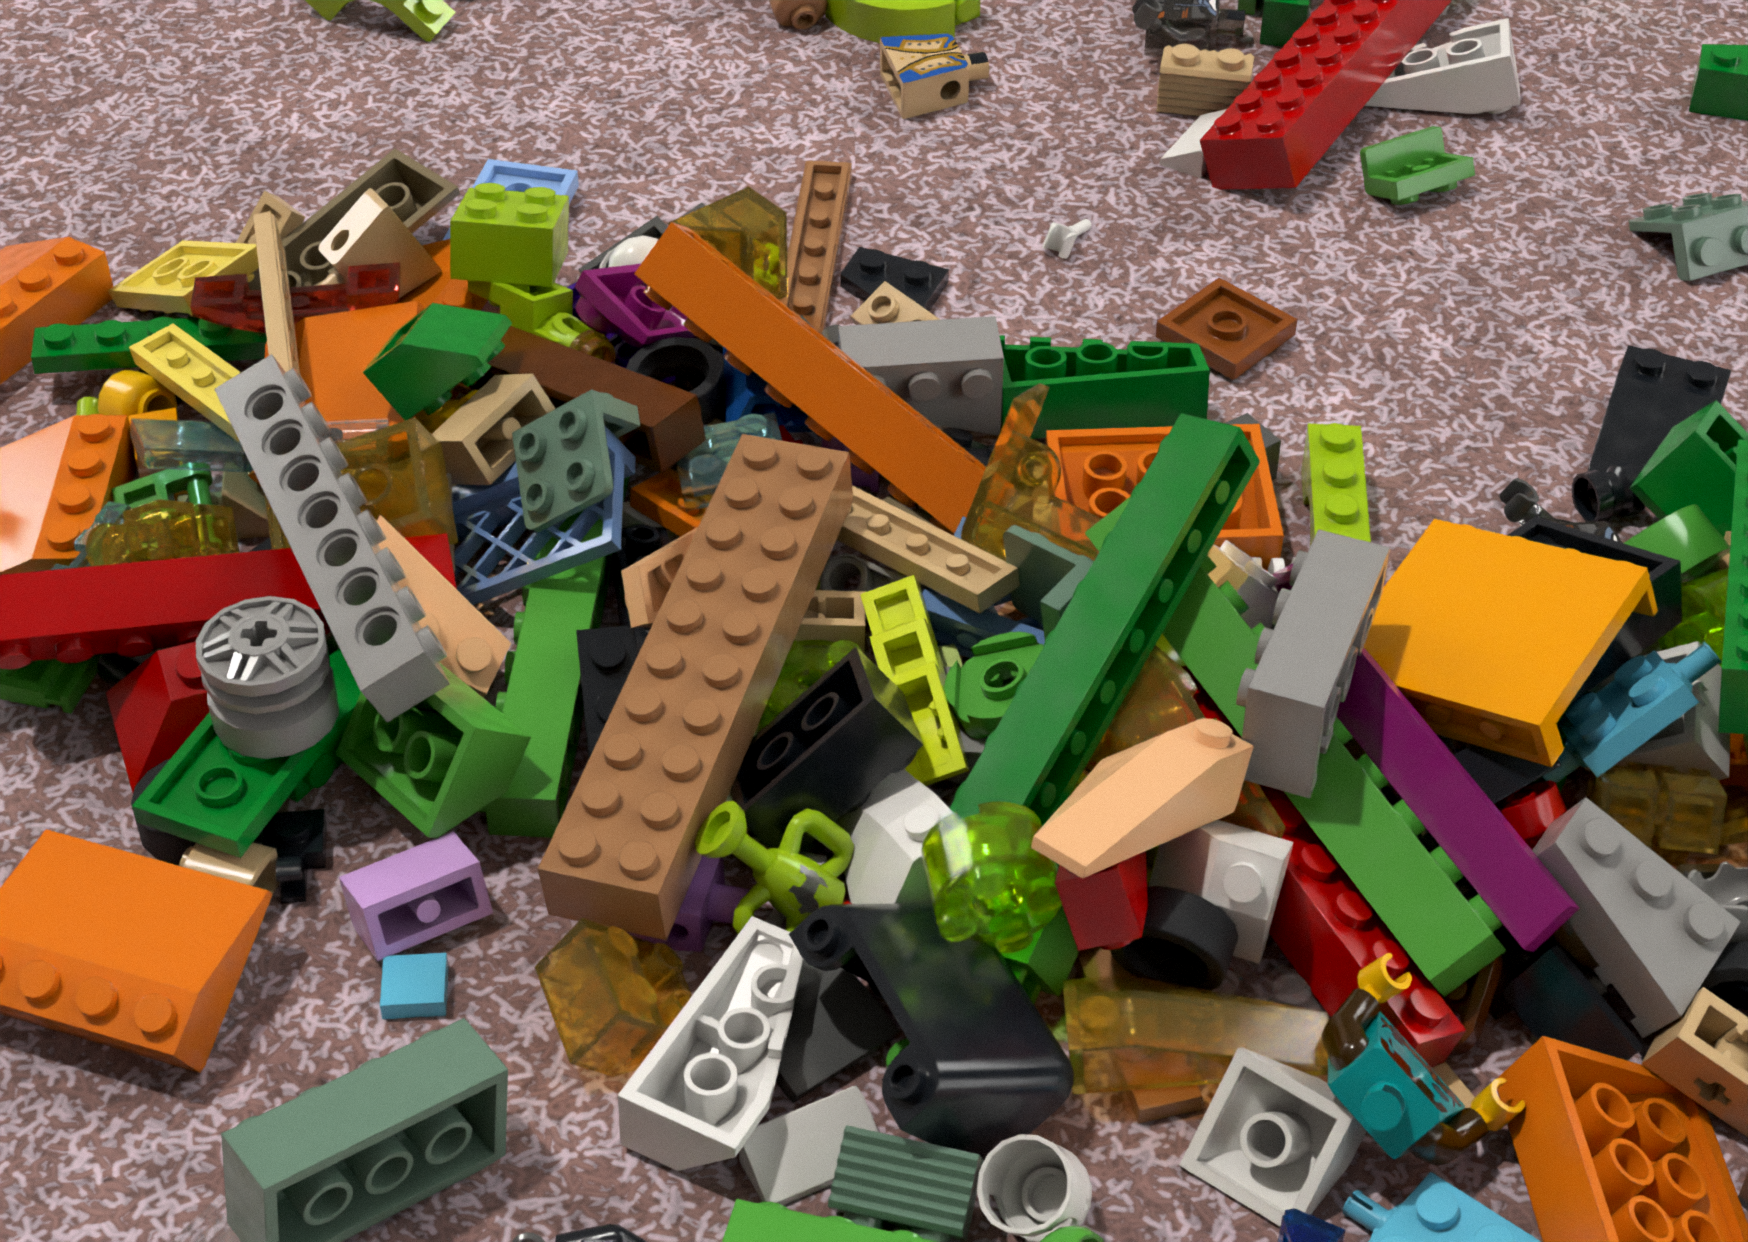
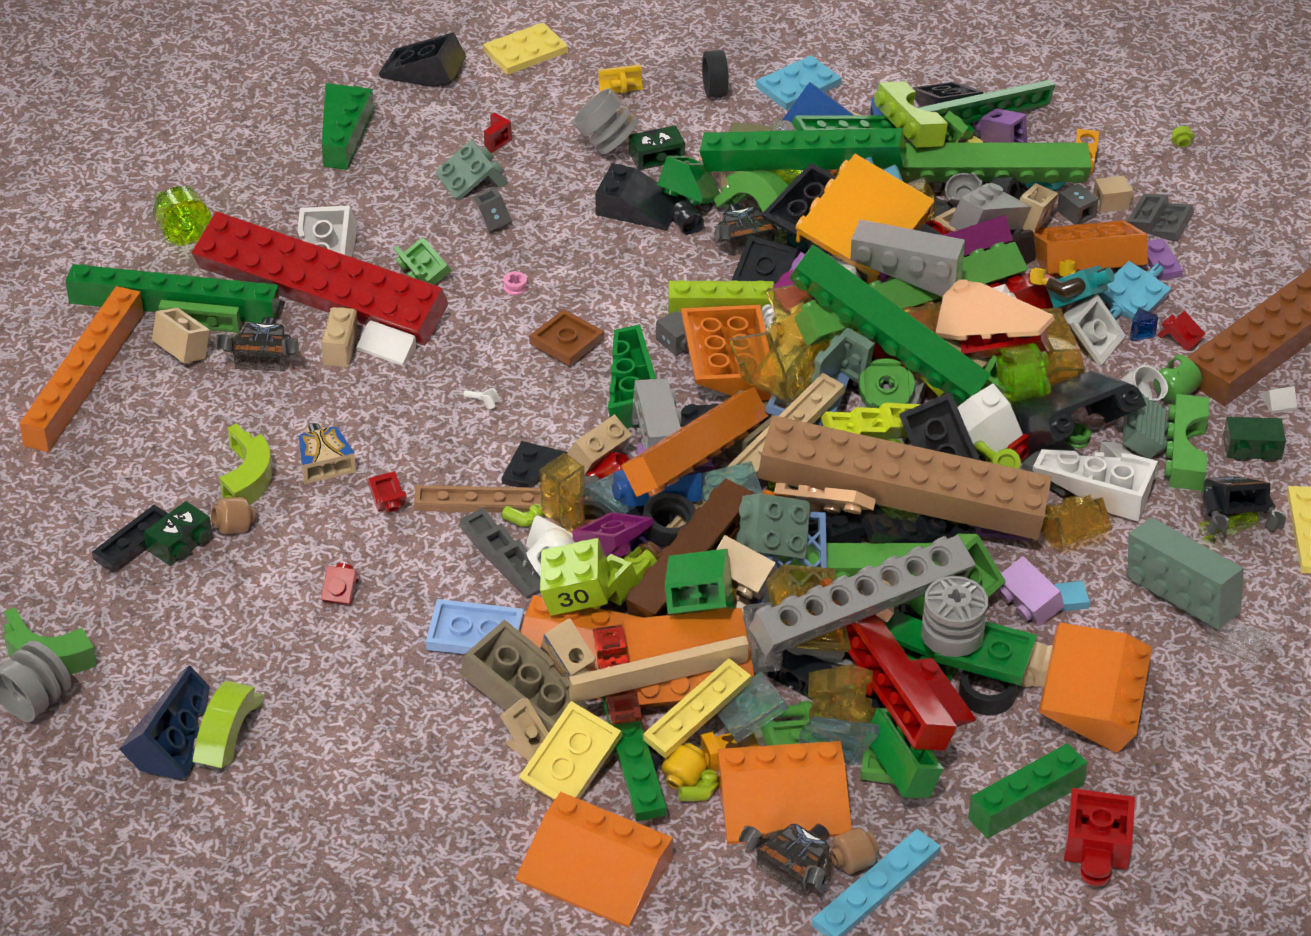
camera: 95 degrees left, 0 degrees up
(638, 86) = (339, 584): none -> bracket
(831, 133) = (387, 492): none -> red bracket
(1382, 278) = (510, 280): none -> bright pink bush
(1570, 237) = (492, 209): none -> dark grey brick

